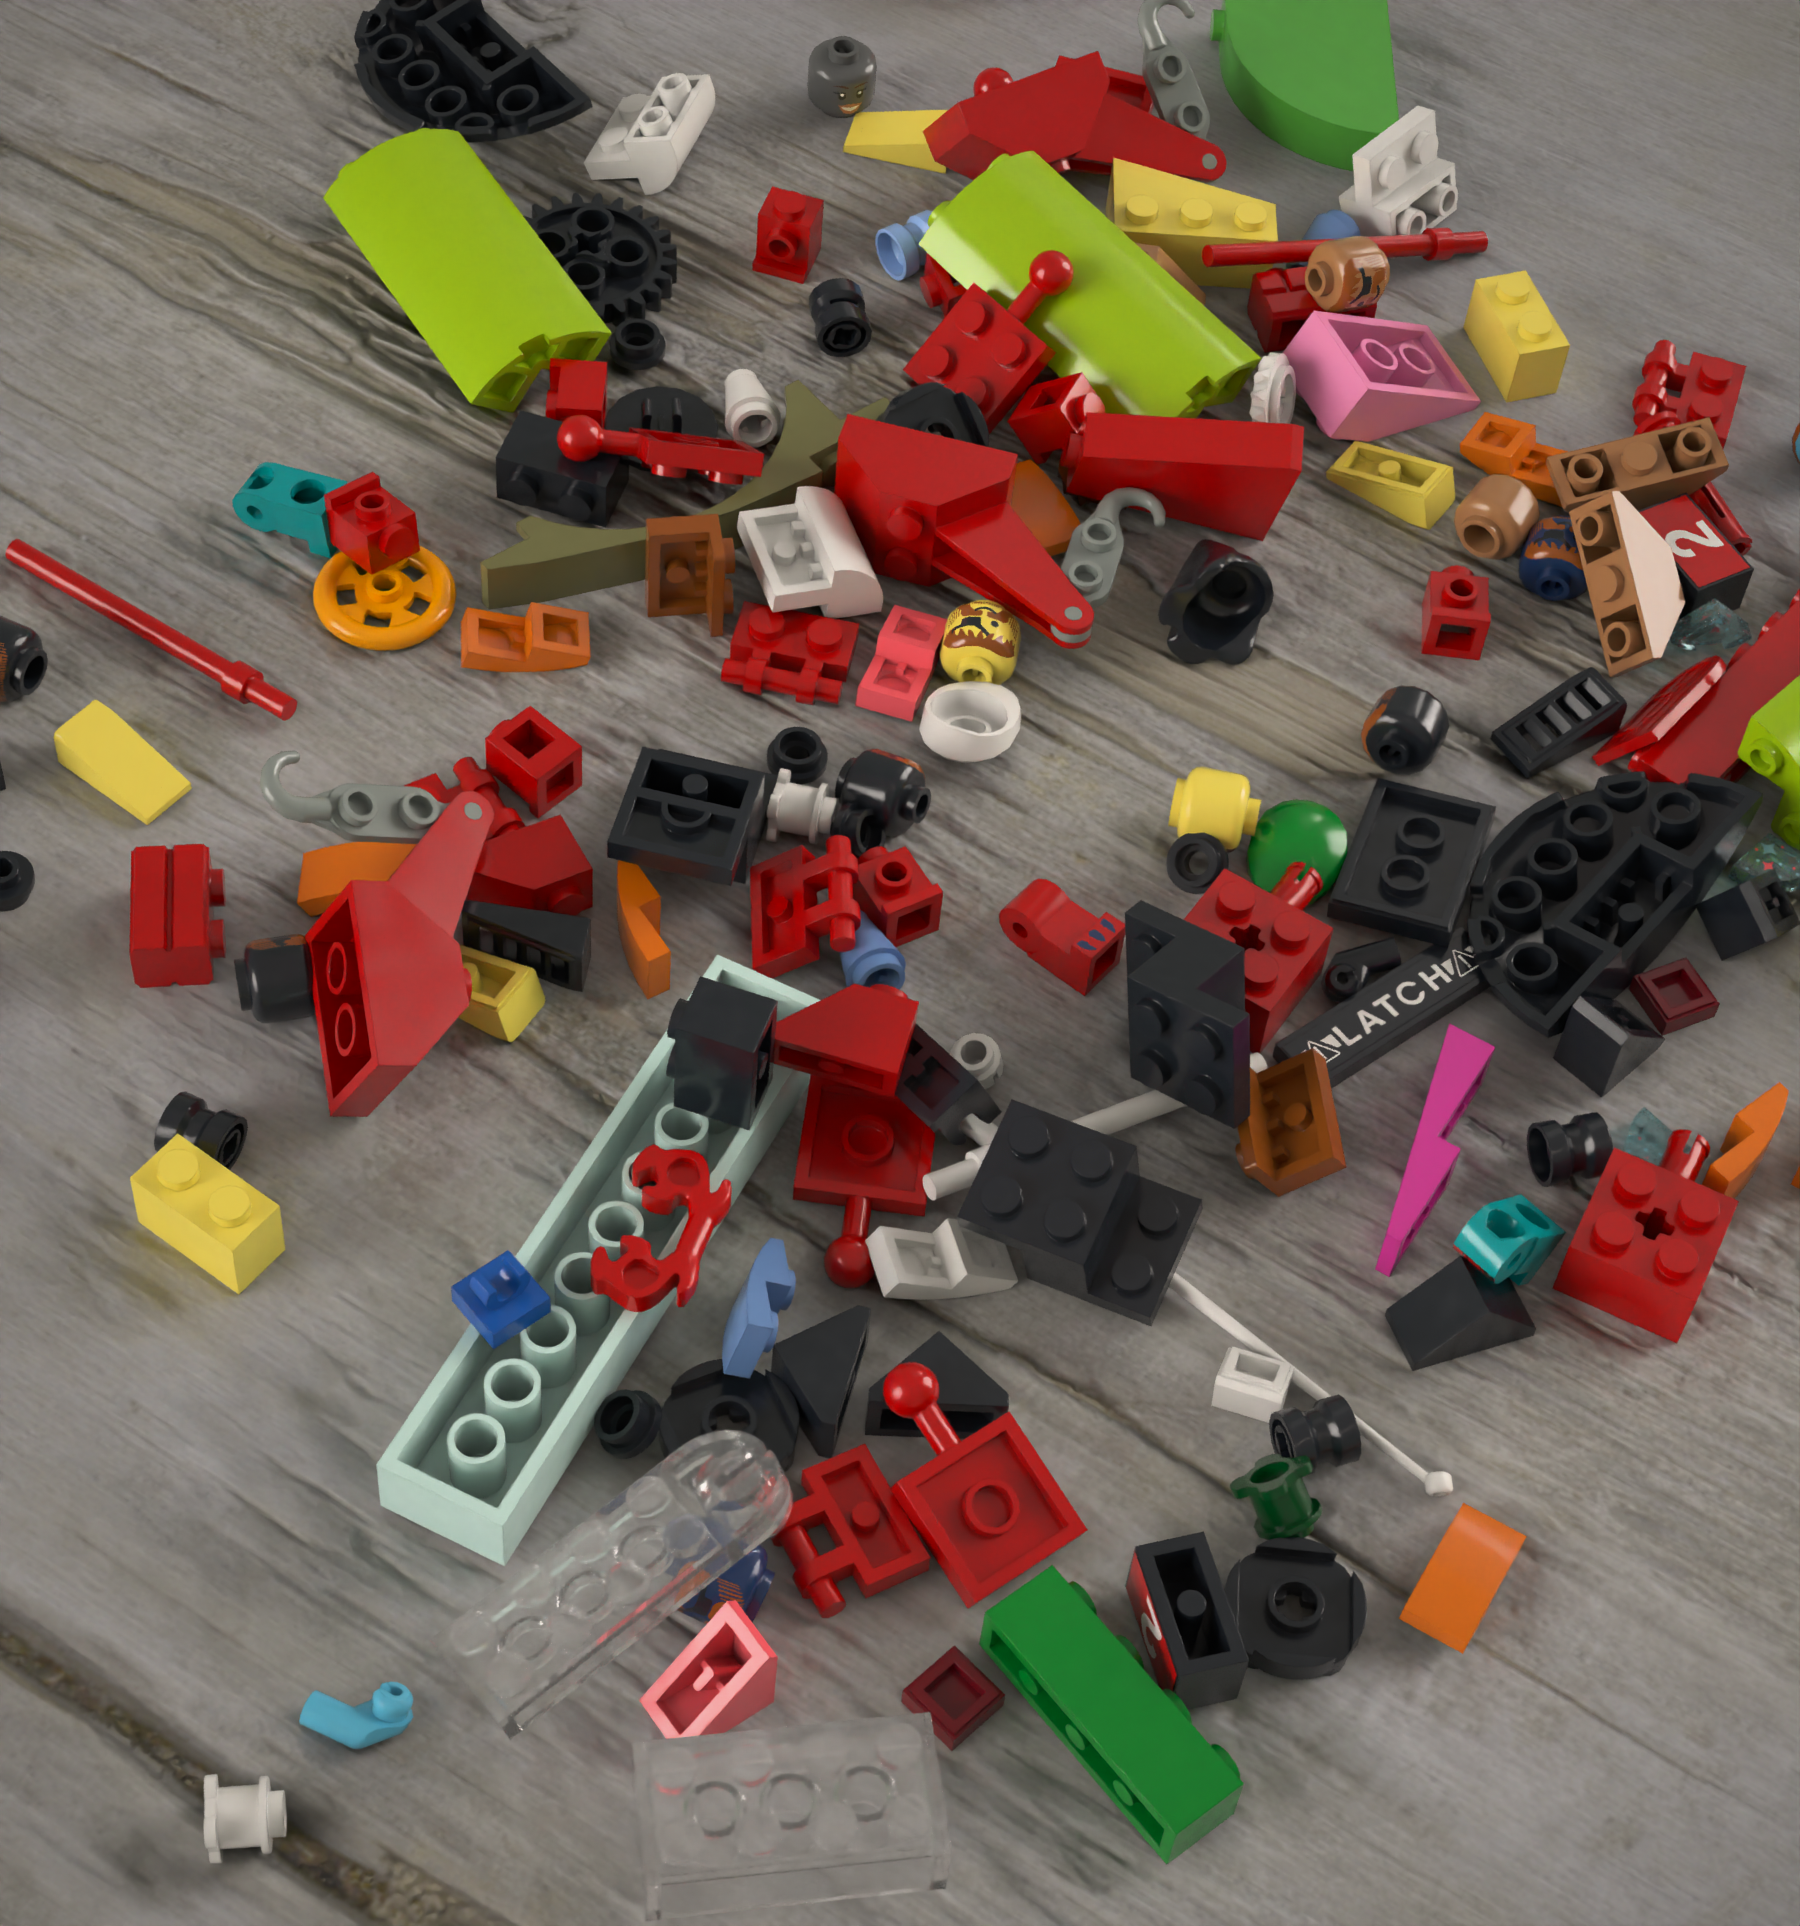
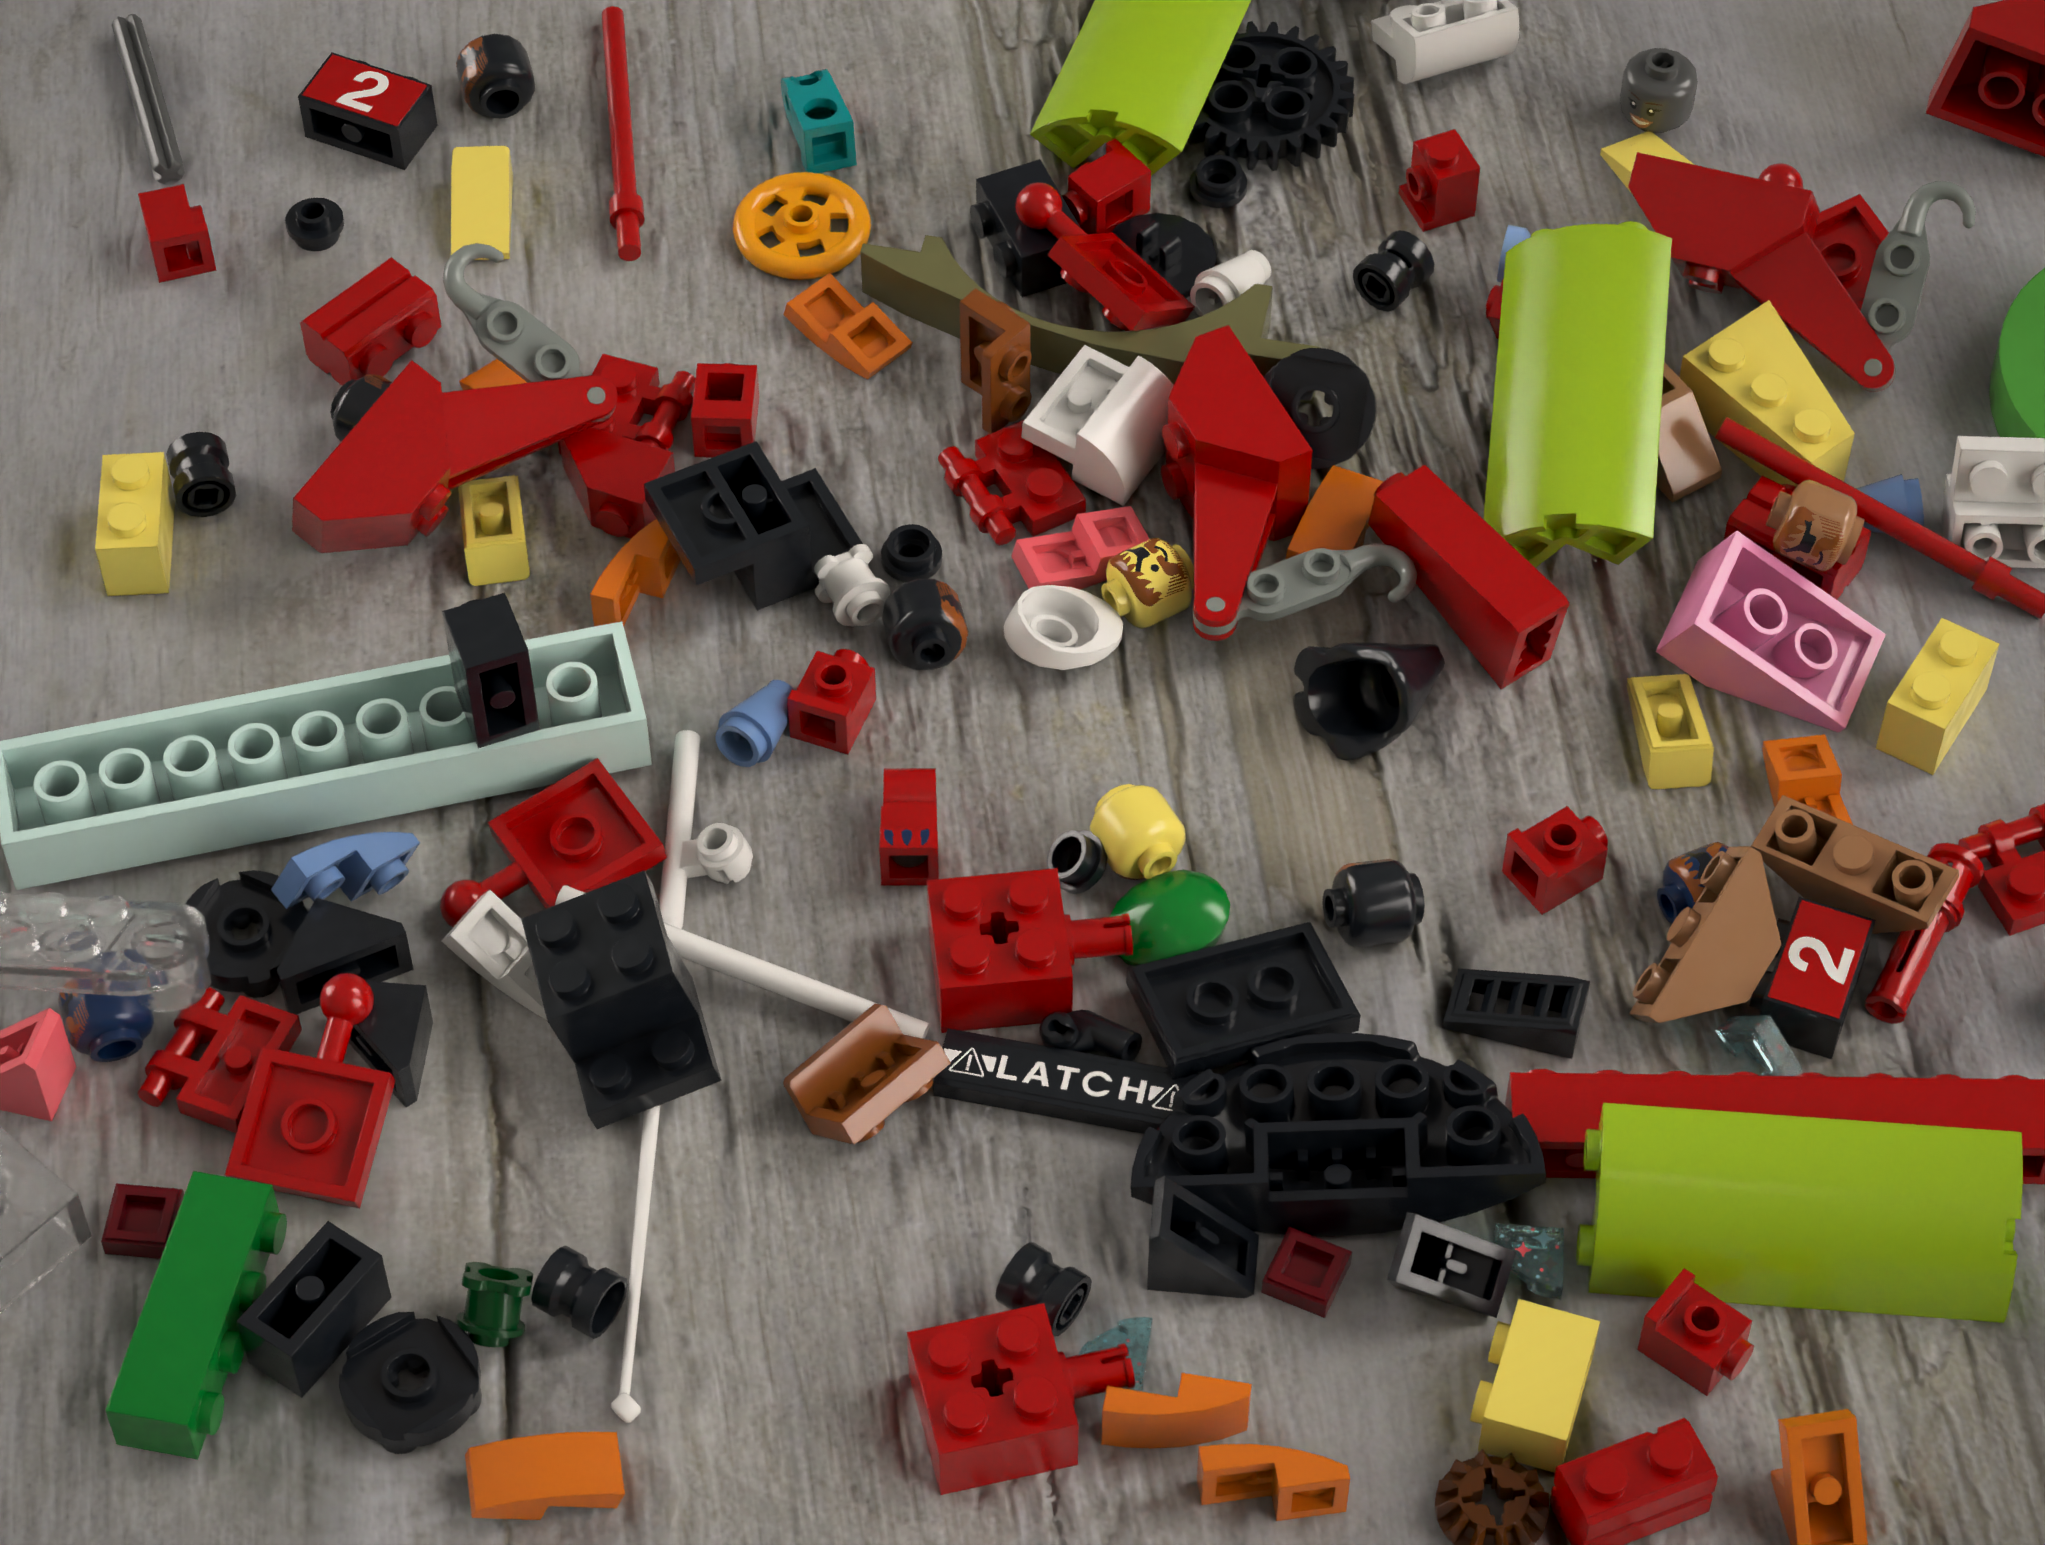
camera: 55 degrees right, 0 degrees up
(371, 524) = (833, 163): red brick -> none
(501, 1299) = (180, 709): blue tile -> none
(546, 941) = (564, 533): black slope -> none
(627, 1422) = (189, 870): black plate -> none
(639, 1279) = (279, 774): red helmet -> none
(786, 910) = (754, 650): red plate -> none
(851, 823) = (875, 651): black plate -> none
(851, 1037) = (605, 740): red slope -> none
(941, 1089) = (651, 821): black hinge -> none
(989, 348) = (1453, 371): red plate -> none
(1053, 411) = (1447, 453): red brick -> none
(1188, 1014) = (865, 933): black bracket -> none
(1251, 1384) = (596, 1220): white slope -> none
(1273, 390) = (1633, 602): white gear -> none
(1432, 1159) = (910, 1205): dark pink slope -> none
(1457, 1316) = (809, 1321): black slope -> none
(1496, 517) = (1694, 812): medium nougat head -> none
(1508, 1240) = (879, 1289): teal leg -> none
(1662, 710) = (1607, 1061): red window -> none

